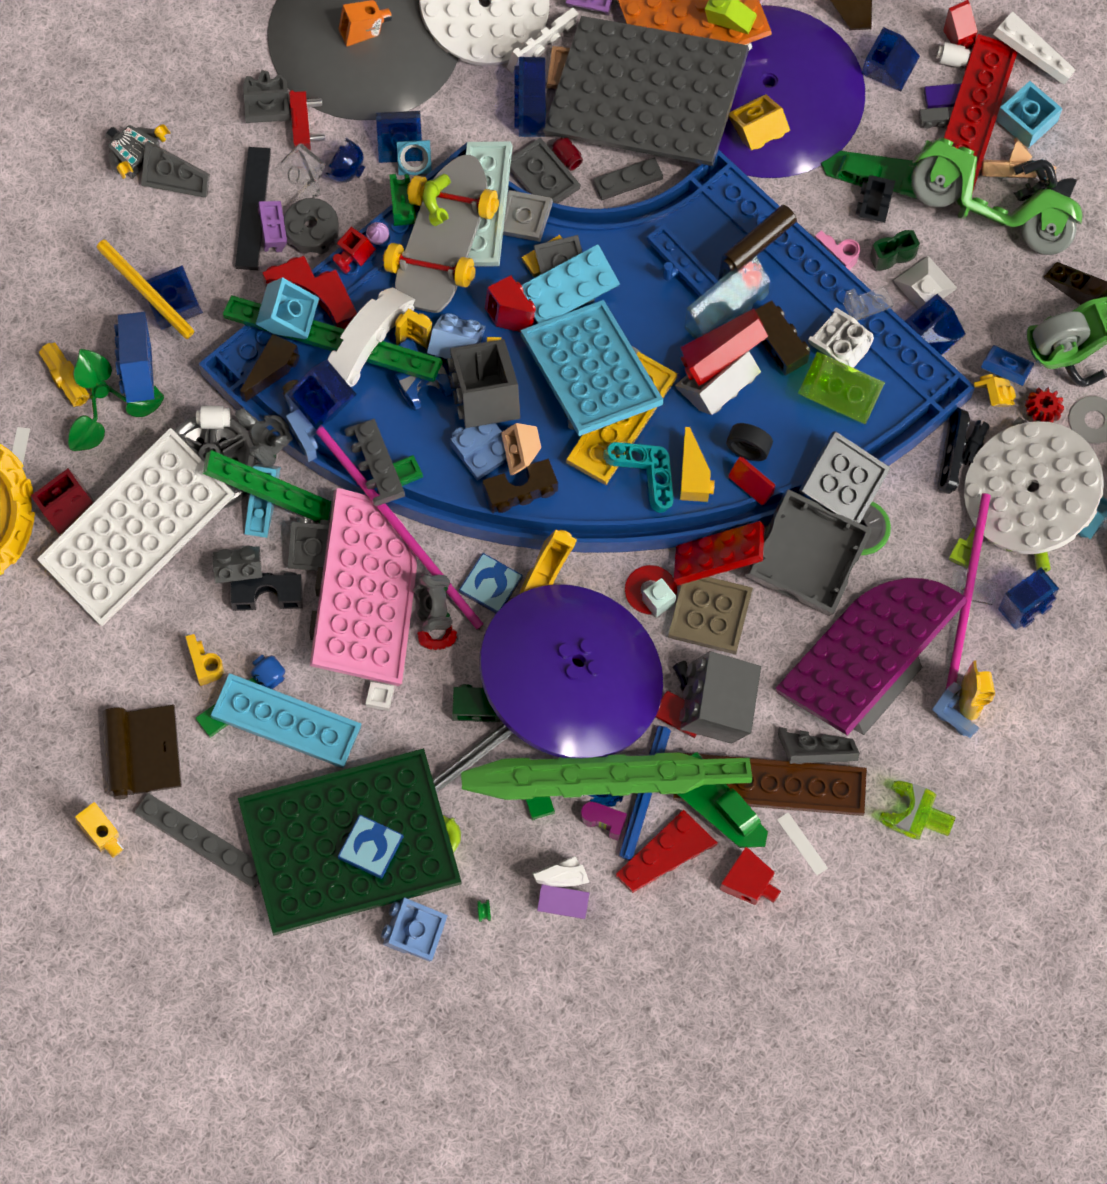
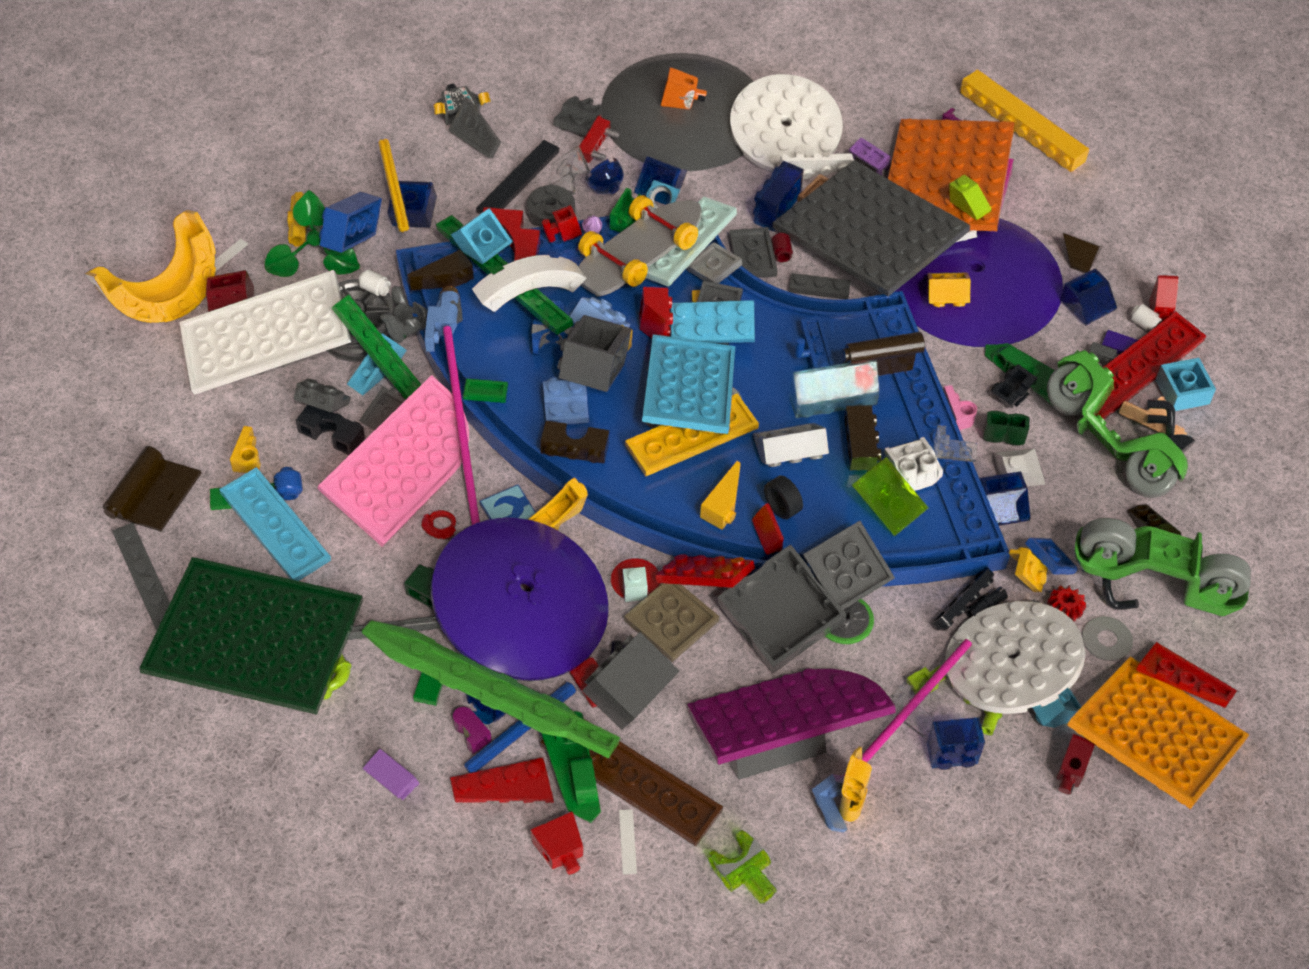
camera: 30 degrees right, 15 degrees down
(93, 821) = (73, 524): yellow torso -> none
(272, 225) = (520, 190): medium lavender hinge -> none
(321, 394) = (461, 298): clear blue brick -> none
(370, 846) = (263, 644): tile -> none
(377, 461) = (475, 373): dark grey hinge -> none
(379, 696) = (360, 545): white plate -> none
(414, 326) = (567, 290): yellow bracket -> none
(414, 929) = (254, 729): medium blue plate -> none
(431, 191) = (645, 209): lime piece -> none
(433, 602) = (453, 492): dark grey hair -> none
(484, 910) = (321, 746): green bush -> none
(520, 446) = (595, 412): light nougat slope -> none
(564, 873) = (404, 748): white slope -> none
(647, 462) = (690, 474): teal beam -> none
(722, 346) = (806, 416): red slope -> none
(810, 749) = (691, 771): dark grey wing -> none
(1029, 44) = (1219, 341): white wing -> none

